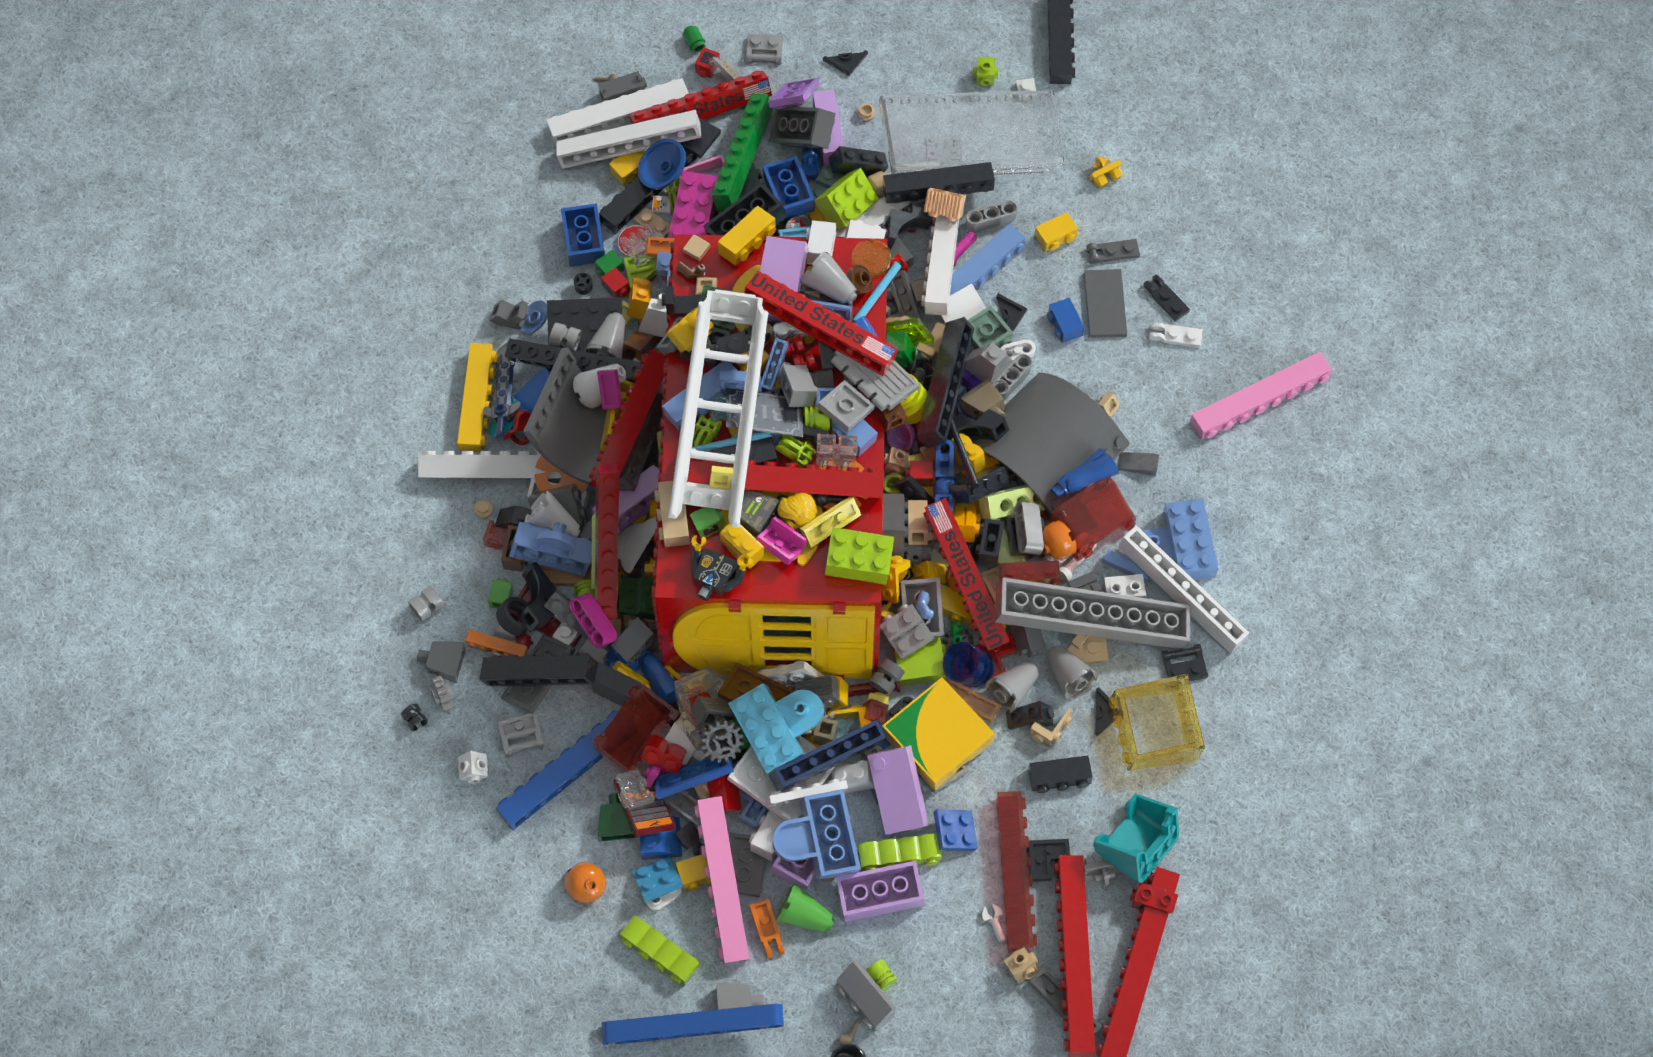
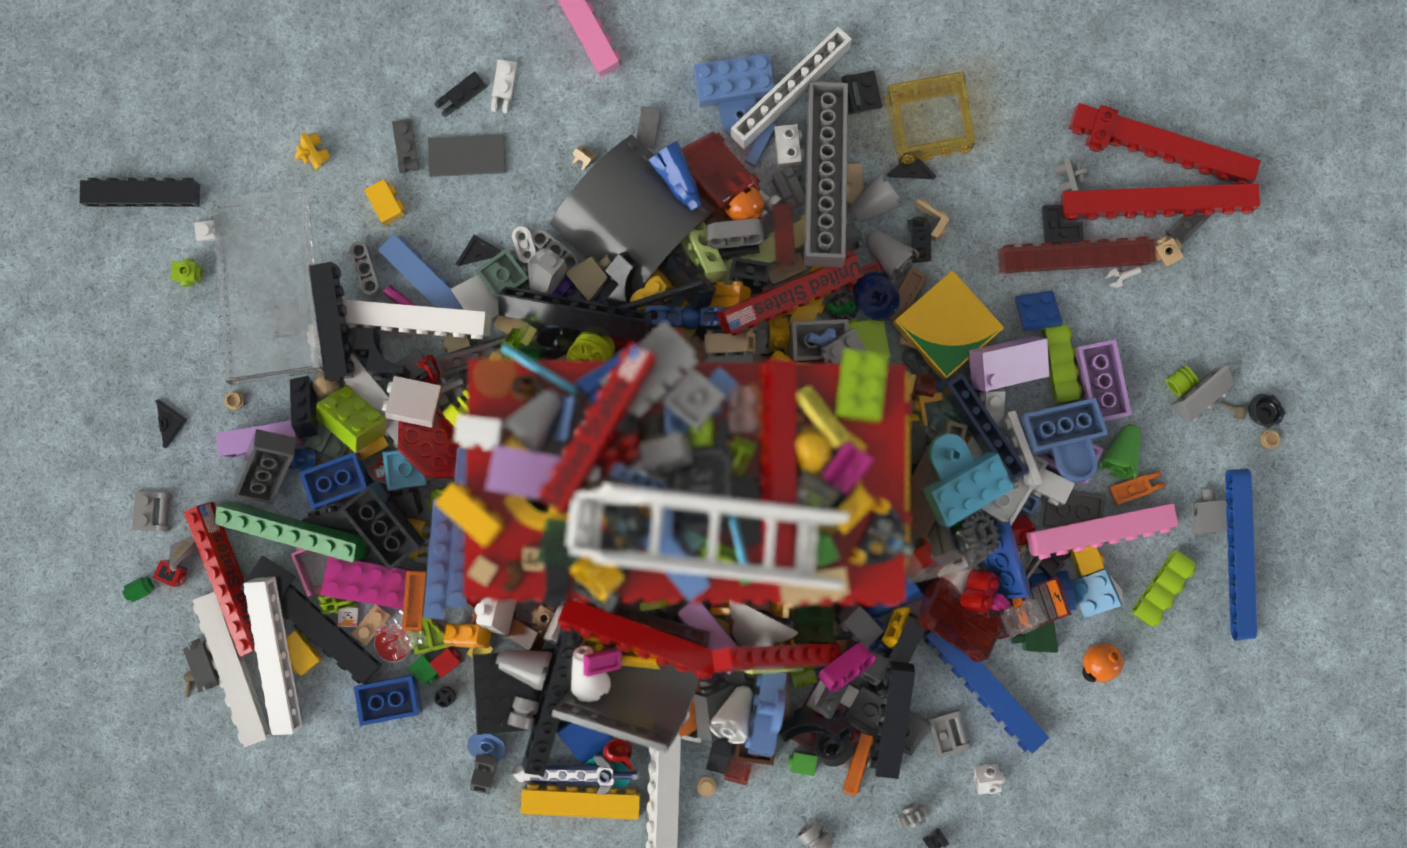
camera: 90 degrees left, 20 degrees up
(444, 659) = (874, 816): dark grey torso -> none
(662, 164) = (306, 625): blue dish -> none
(721, 477) = (791, 533): light yellow plate -> none
(794, 93) = (218, 476): medium lavender plate -> none
(944, 203) = (361, 314): light nougat brick -> none
(1060, 774) = (978, 211): black brick -> none
(1065, 319) = (488, 195): blue brick -> none
(1141, 838) = (1045, 140): teal windscreen -> none

